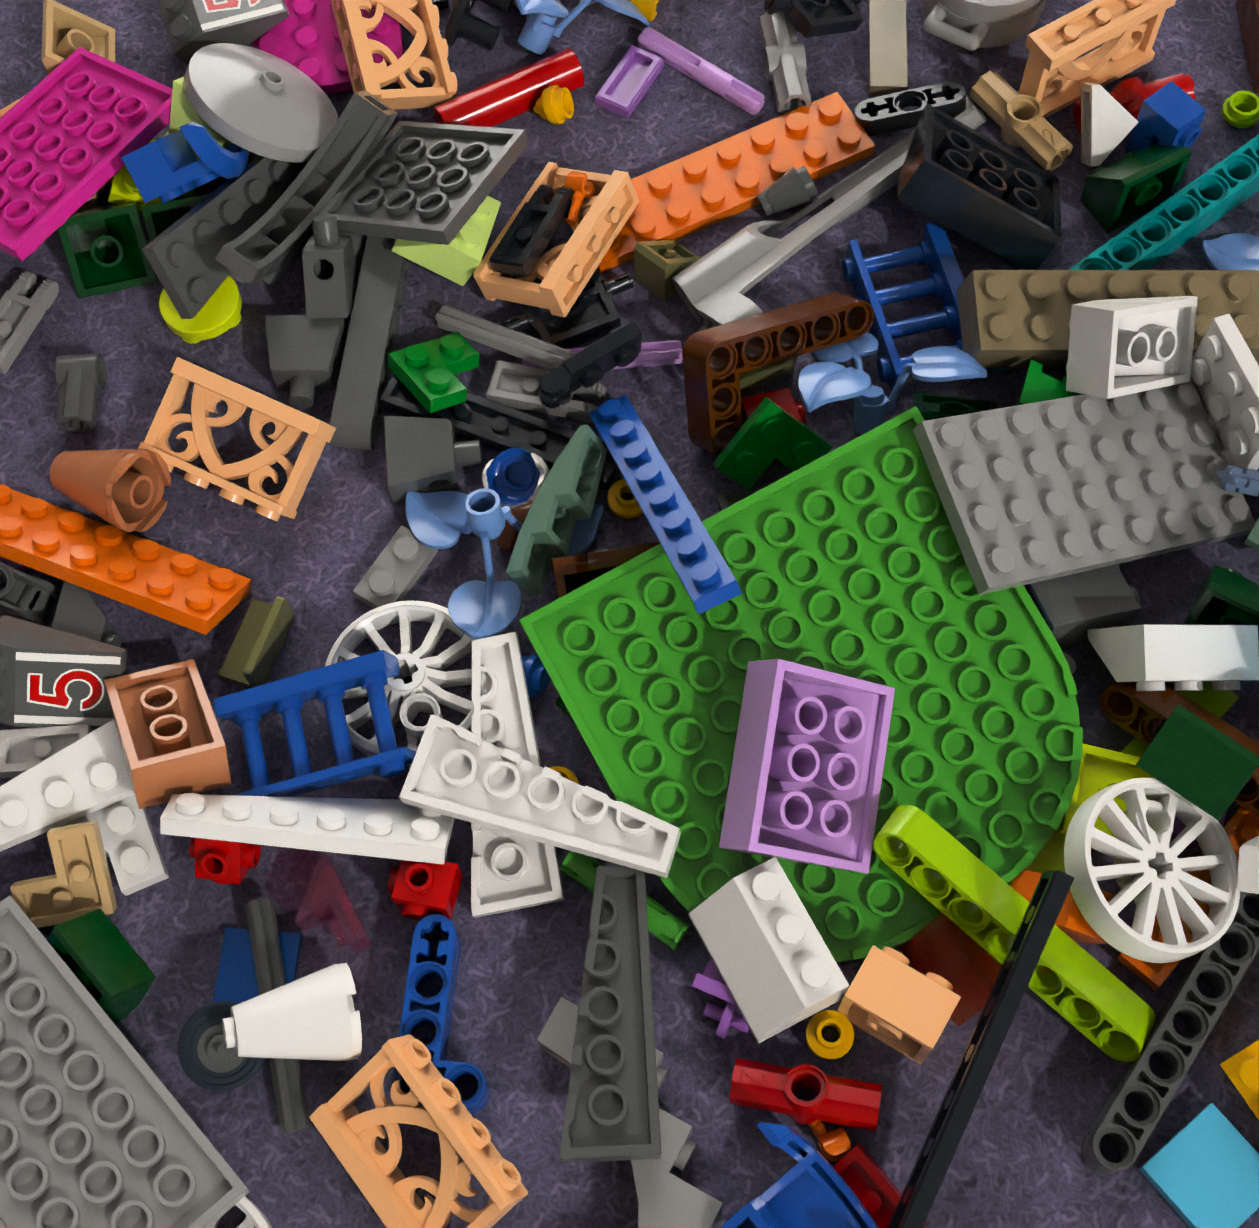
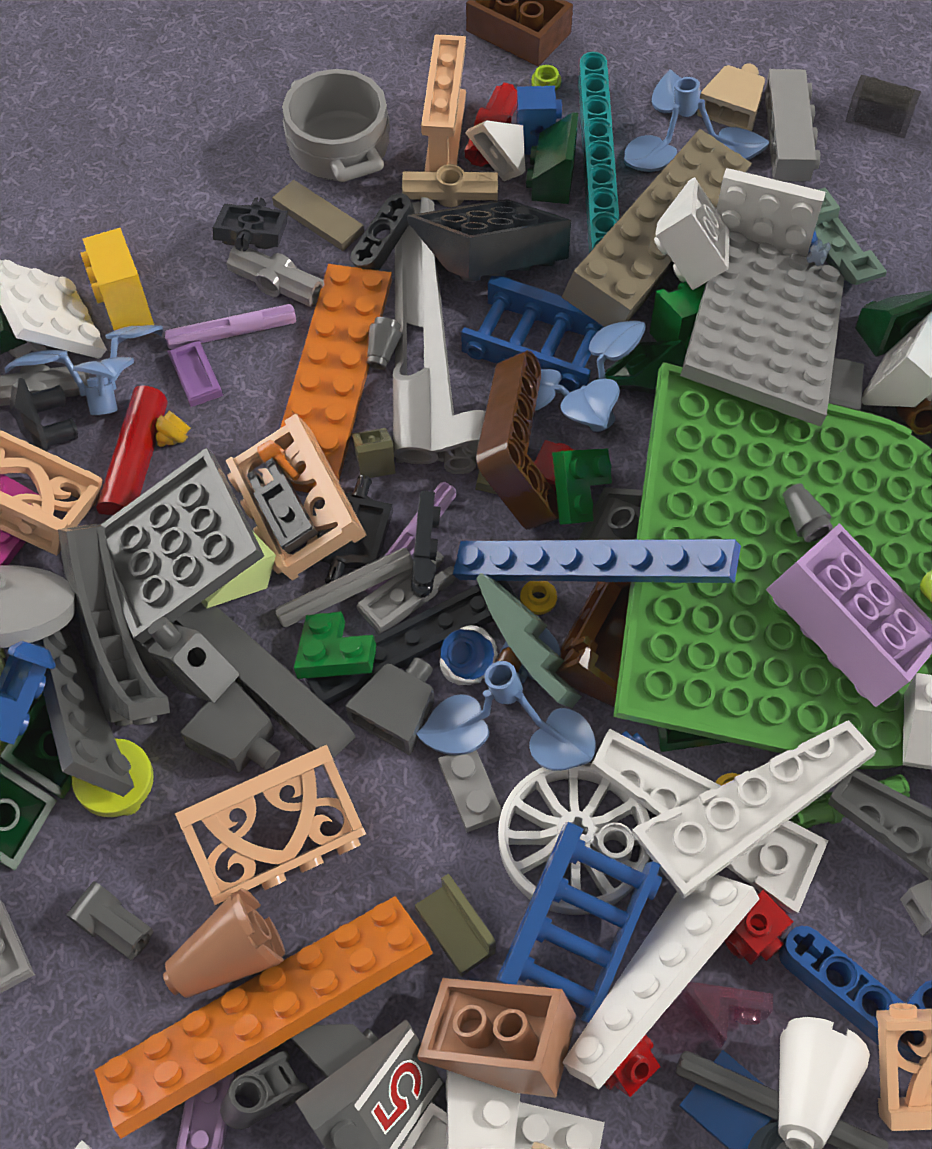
camera: 55 degrees left, 5 degrees down
(869, 648) = (807, 514): none -> dark grey cone

